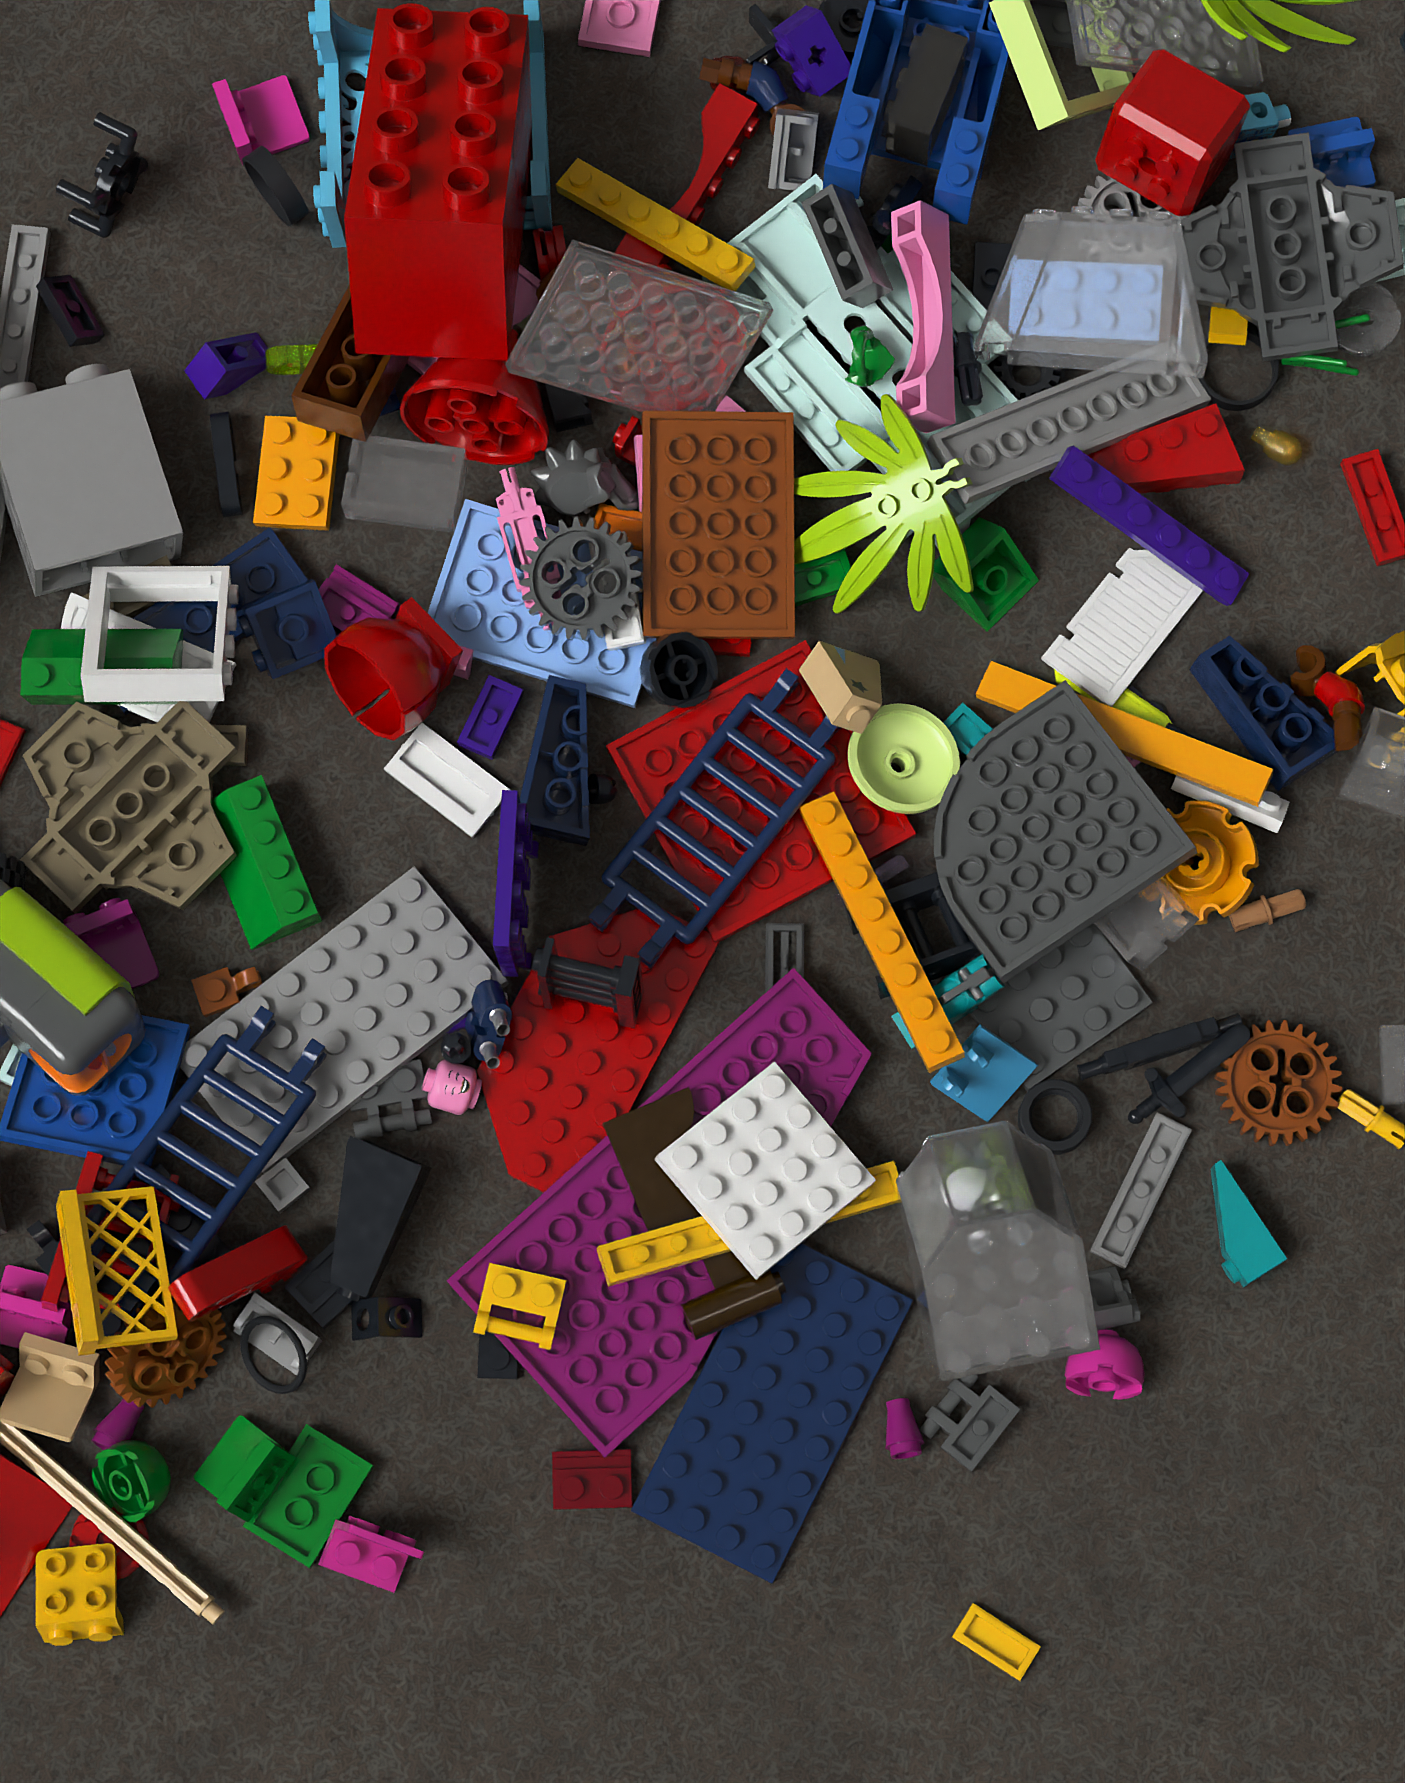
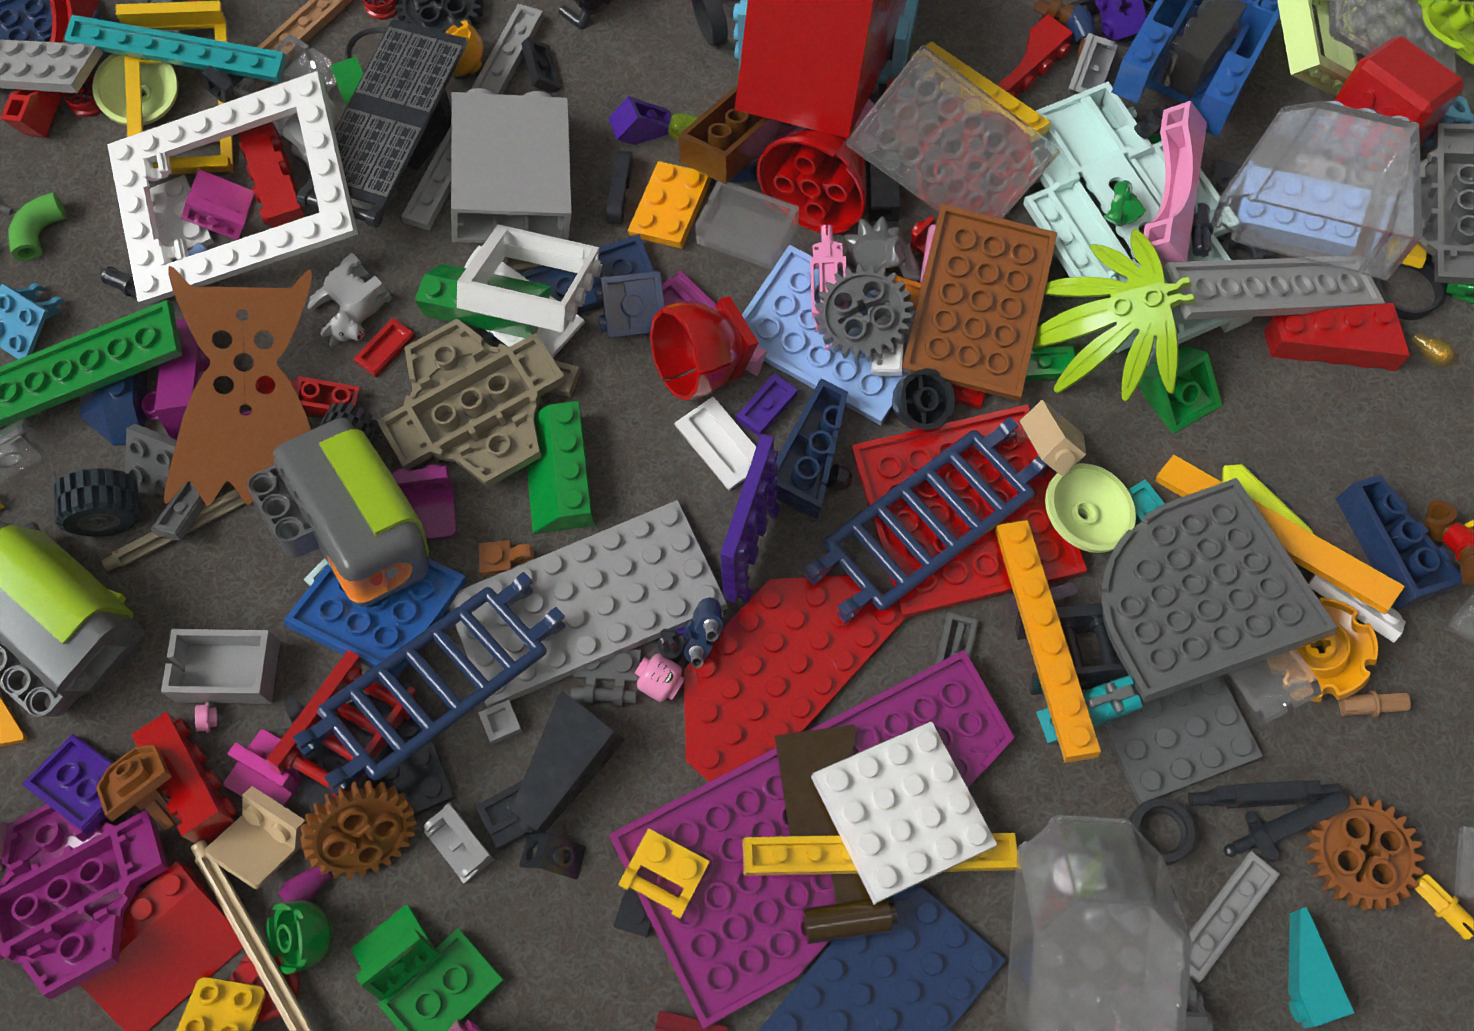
camera: 15 degrees right, 10 degrees down
(81, 1276) = (300, 748): yellow fence -> none
(238, 1273) = (434, 780): red beam -> none
(297, 1343) = (468, 855): black tyre -> none
(591, 983) = (794, 613): black fence -> none
(847, 246) = (1125, 124): dark grey brick -> none
(985, 1075) = (1110, 779): dark azure plate -> none
(1122, 625) = (1290, 450): white piece -> none
(1148, 525) = (1325, 378): dark purple plate -> none

